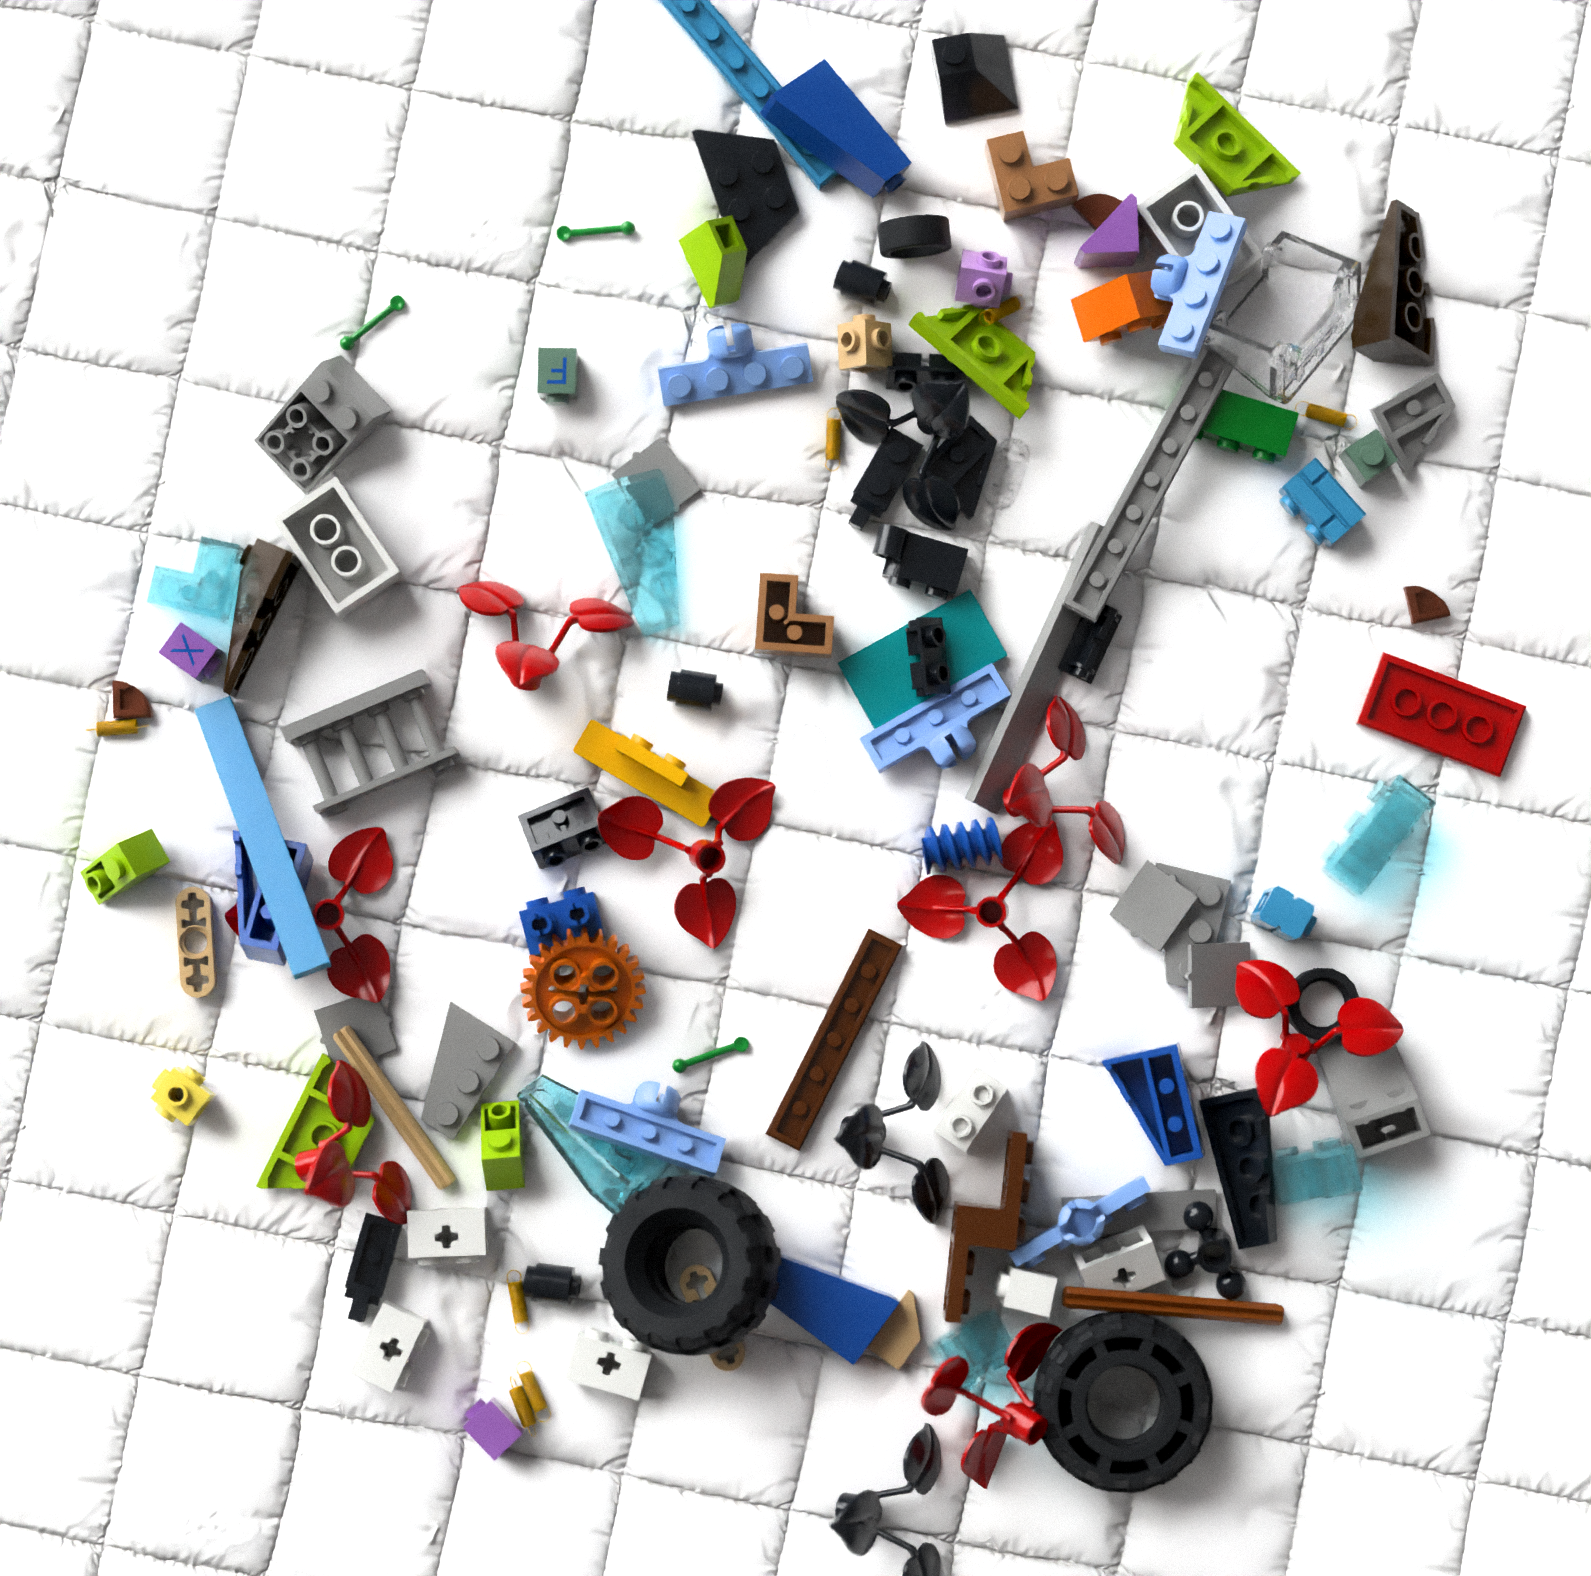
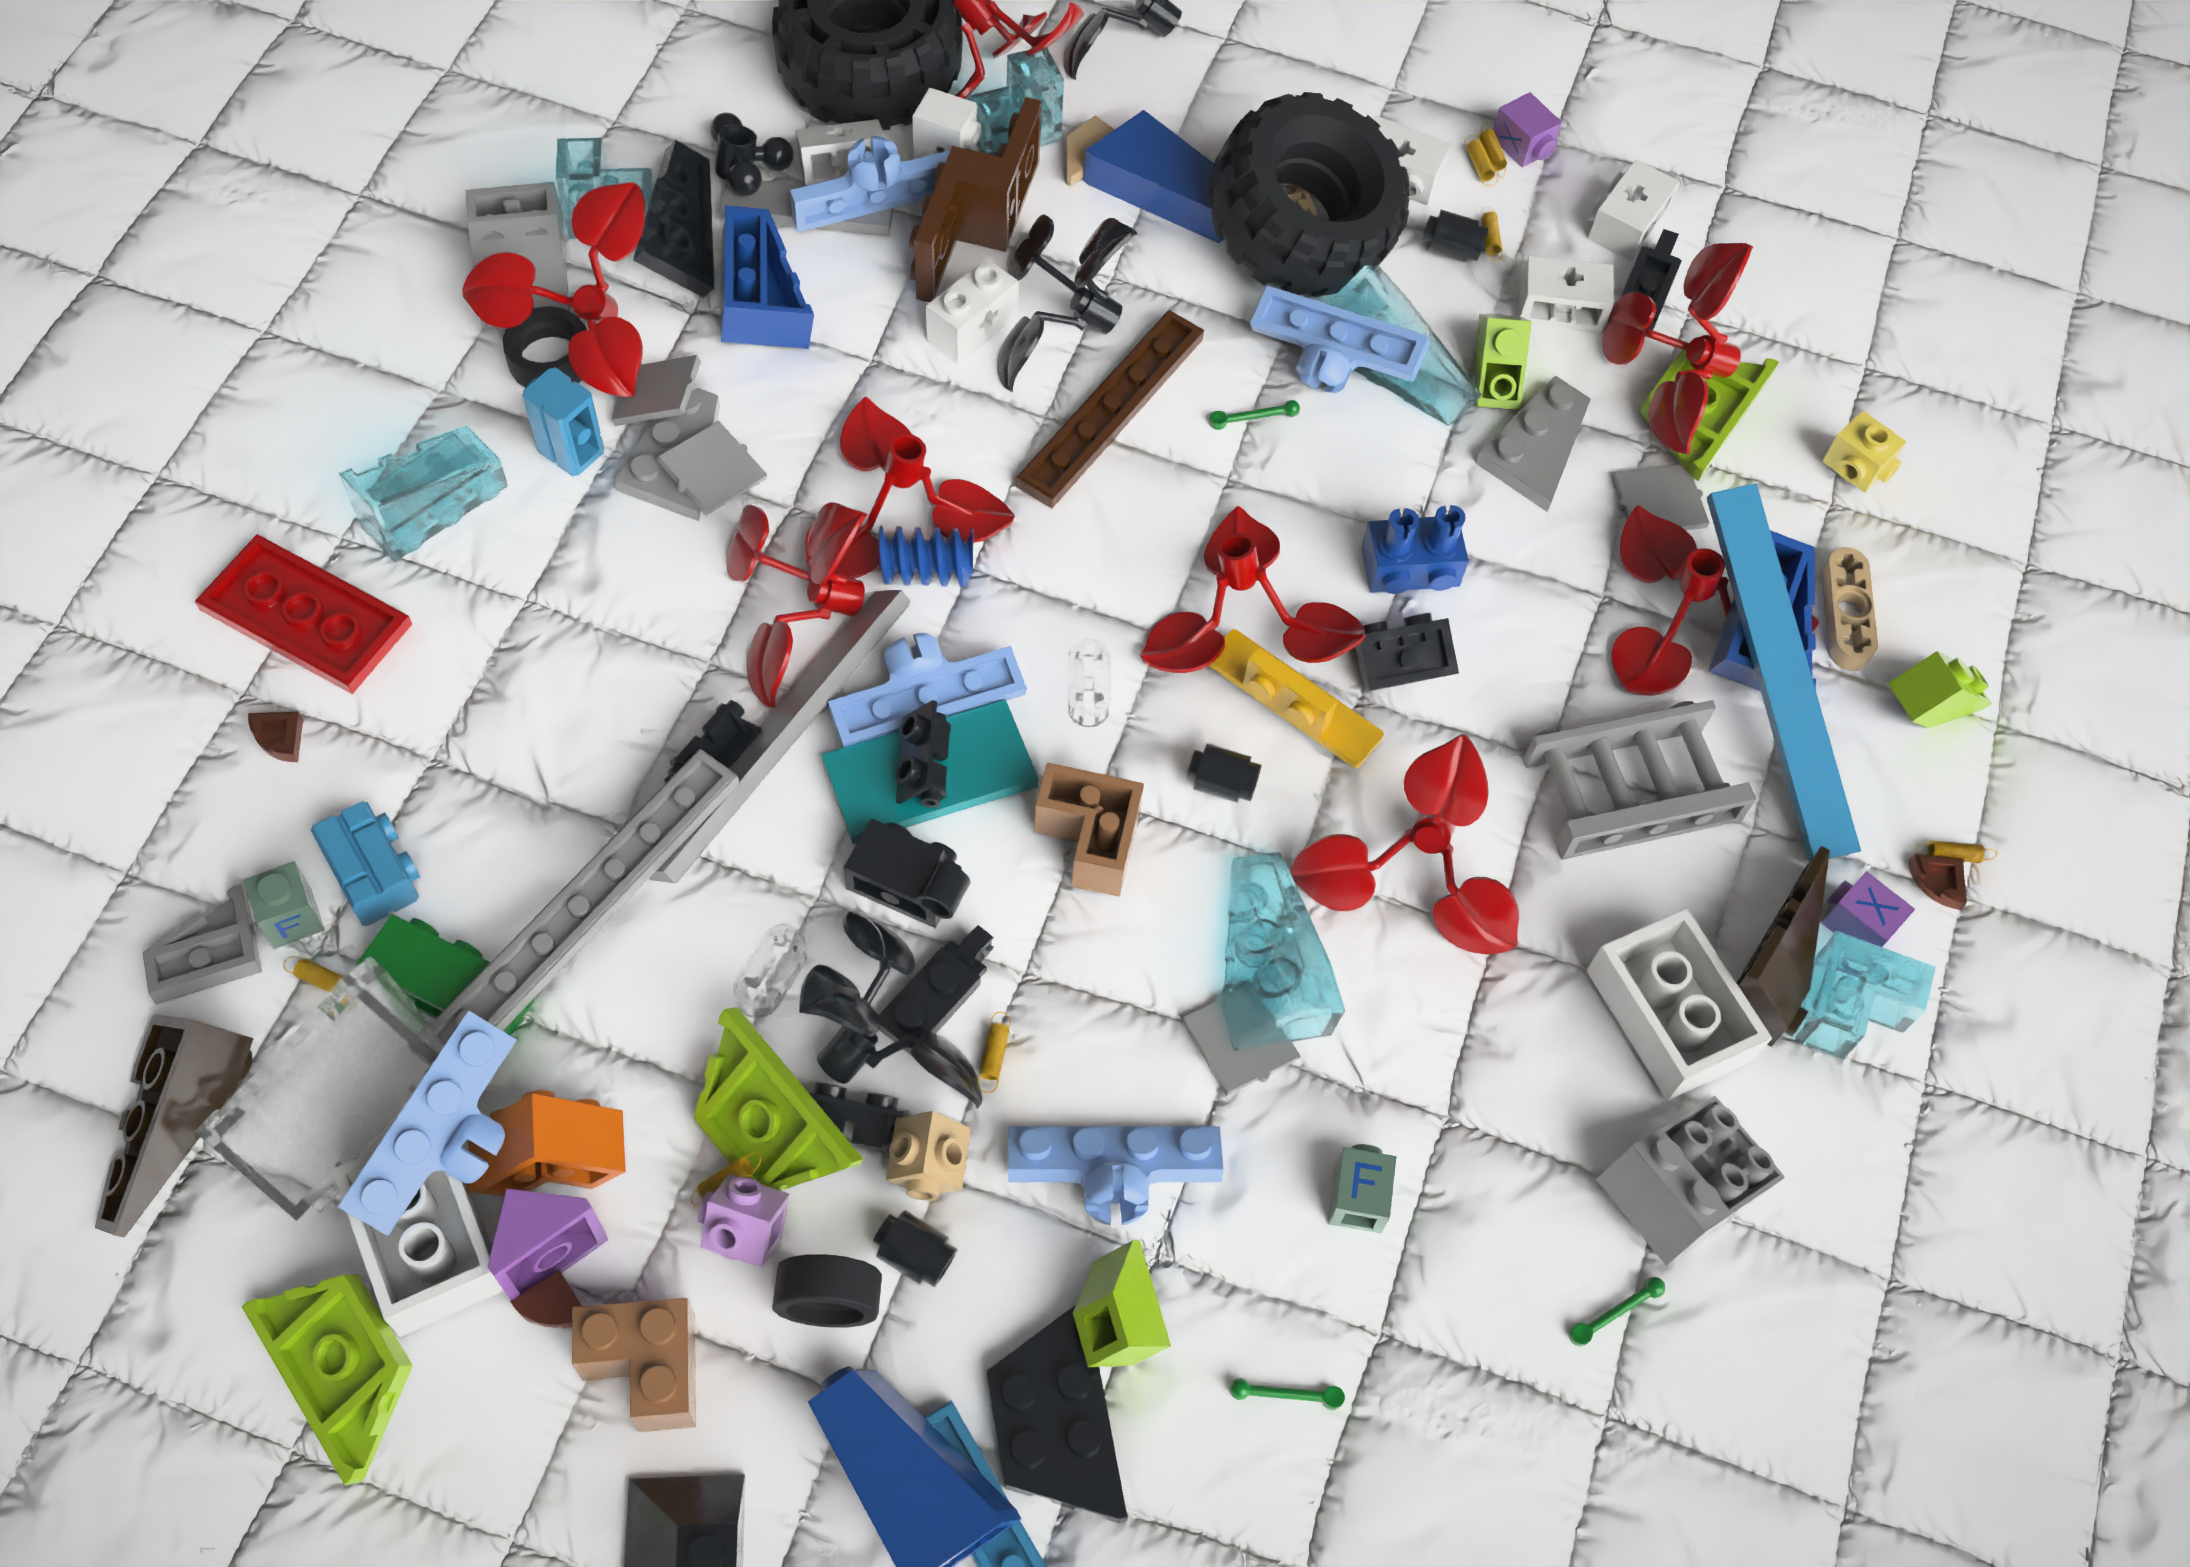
camera: 175 degrees left, 25 degrees down
(394, 1107) = (1621, 416): tan axle -> none
(584, 956) = (1394, 475): orange gear -> none
(965, 464) = (839, 953): black wing -> none
(1172, 1305) = (796, 108): dark orange axle -> none

